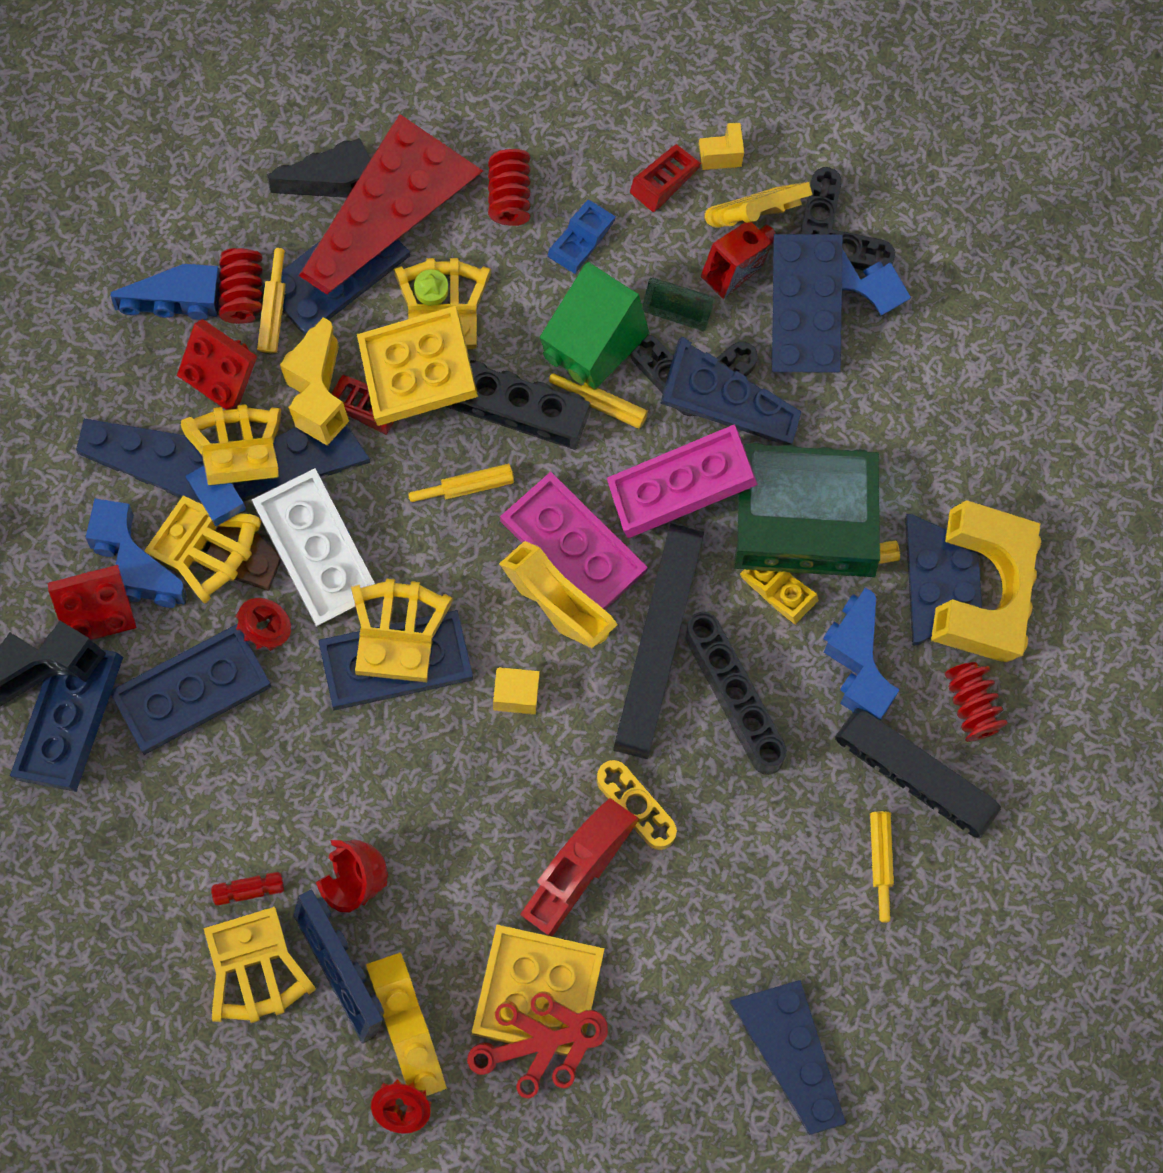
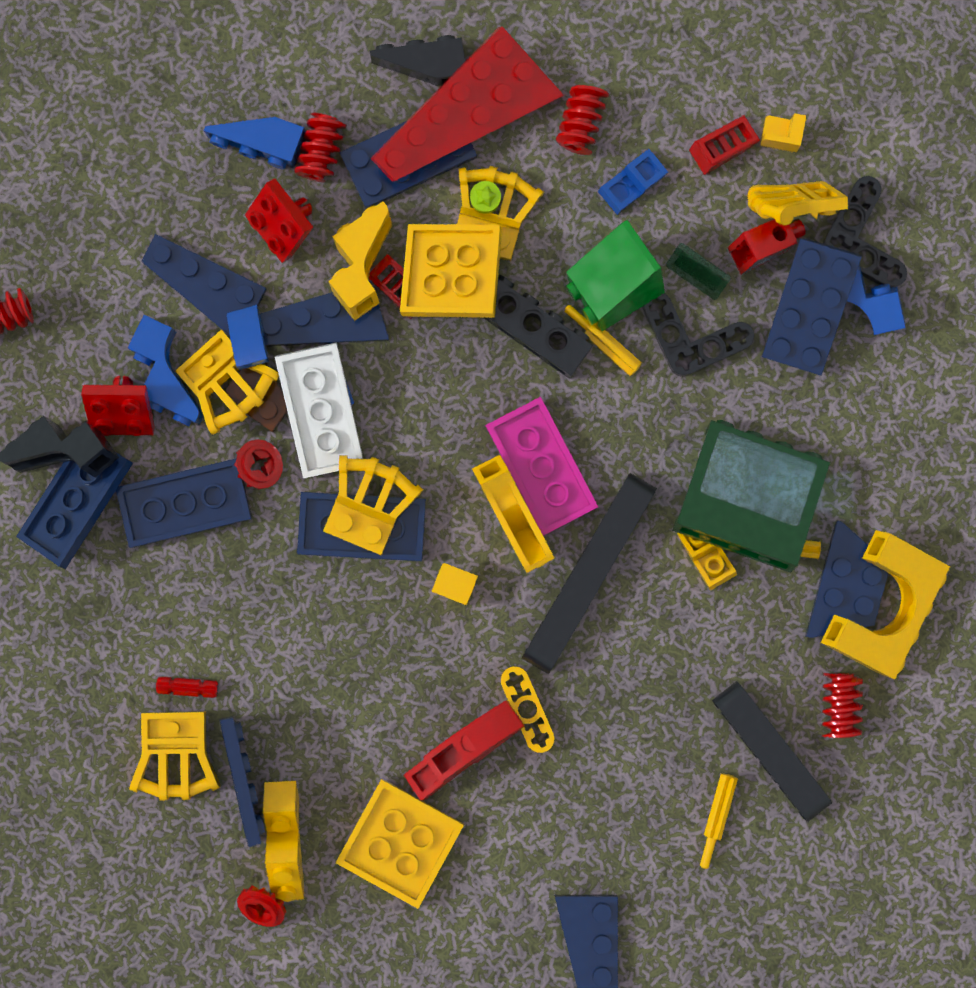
camera: 25 degrees right, 15 degrees up
(239, 459) = (271, 314): yellow plate -> none
(272, 307) = (342, 177): yellow axle -> none
(359, 875) = (278, 710): red helmet -> none
(467, 483) = (466, 385): yellow axle -> none
(544, 1041) = (390, 888): red plant -> none
(681, 481) = (650, 441): dark pink plate -> none
(717, 393) = (707, 367): dark blue wing -> none
(735, 676) = (649, 650): black beam -> none
(853, 647) = (753, 625): blue arch -> none

